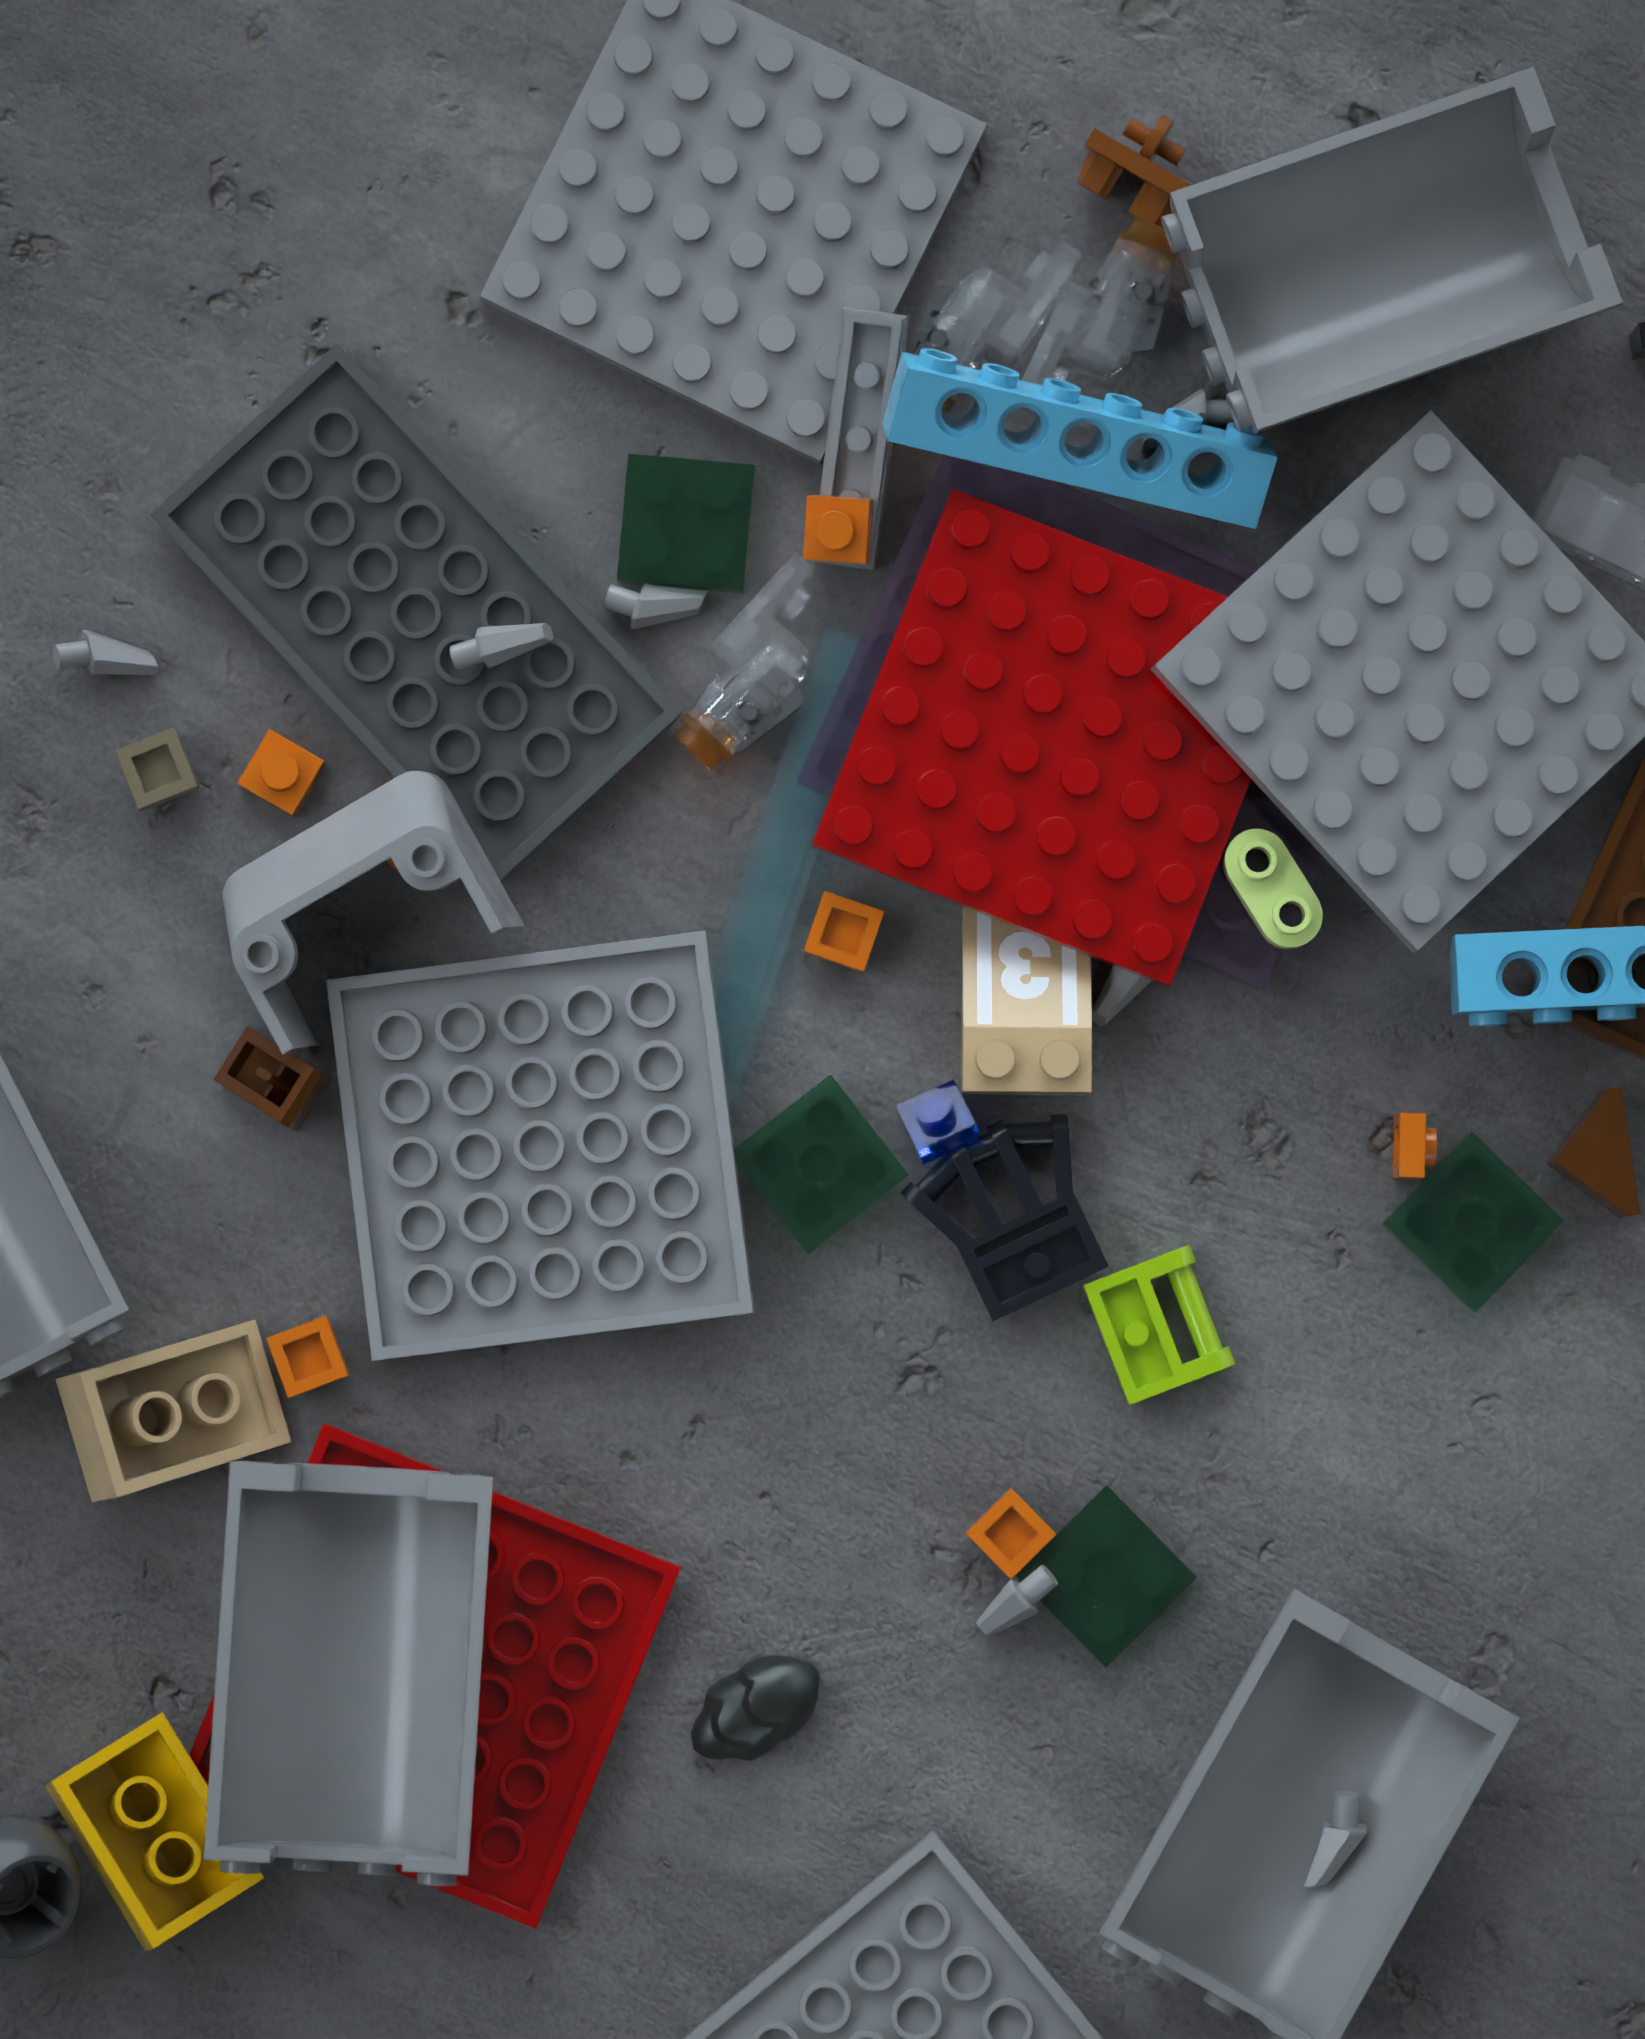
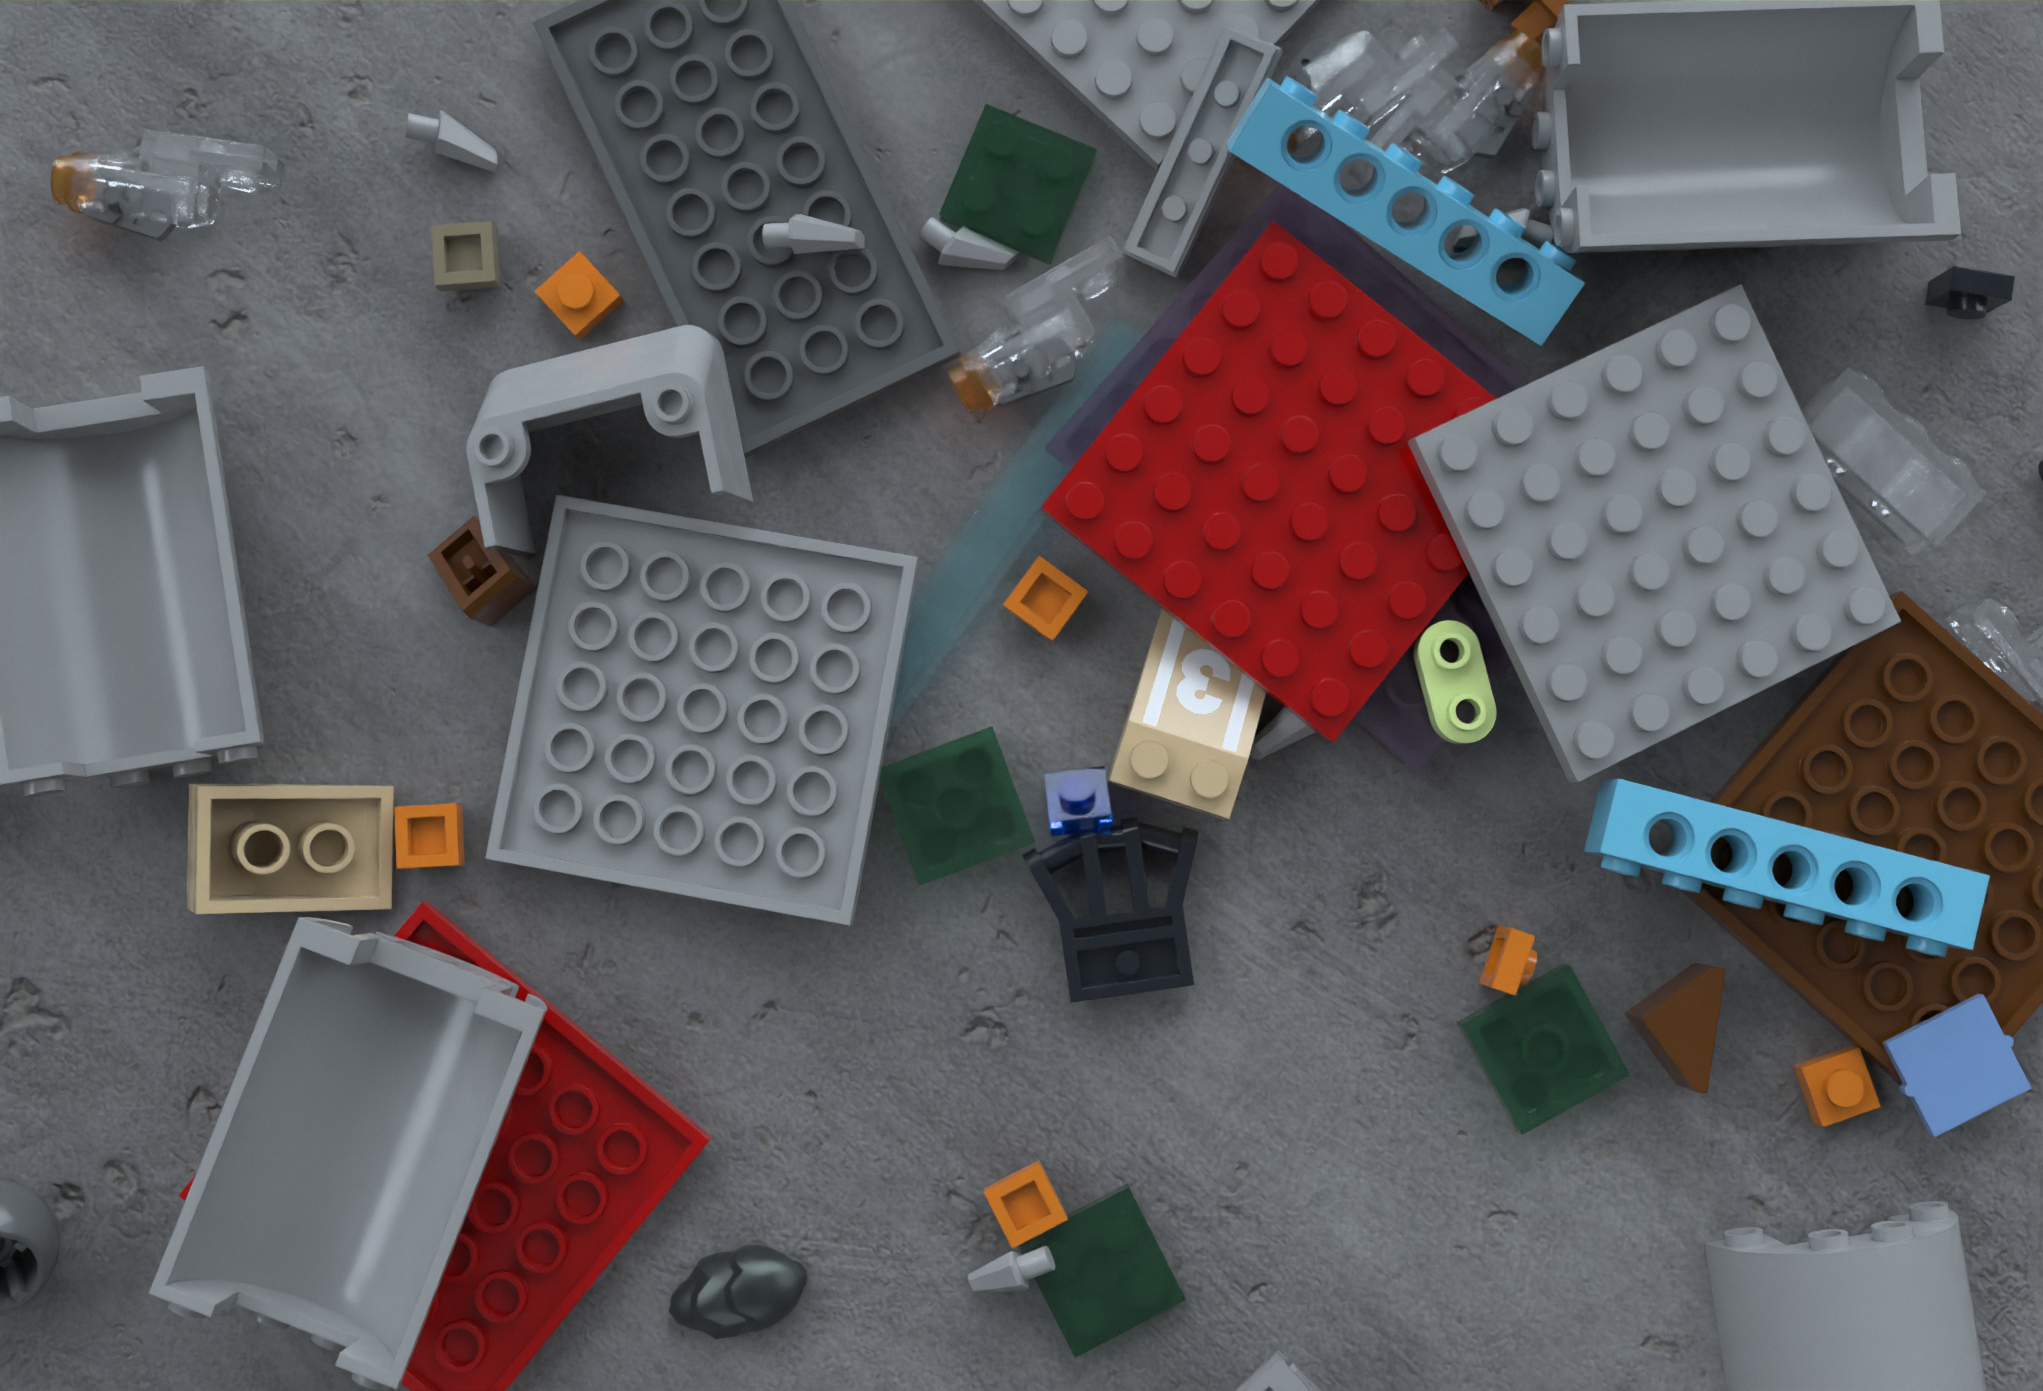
camera: 10 degrees right, 0 degrees up
(144, 1829) = (116, 1222): yellow slope -> none
(838, 529) = (1155, 227): orange plate -> none
(1139, 1334) = (1202, 1055): lime plate -> none

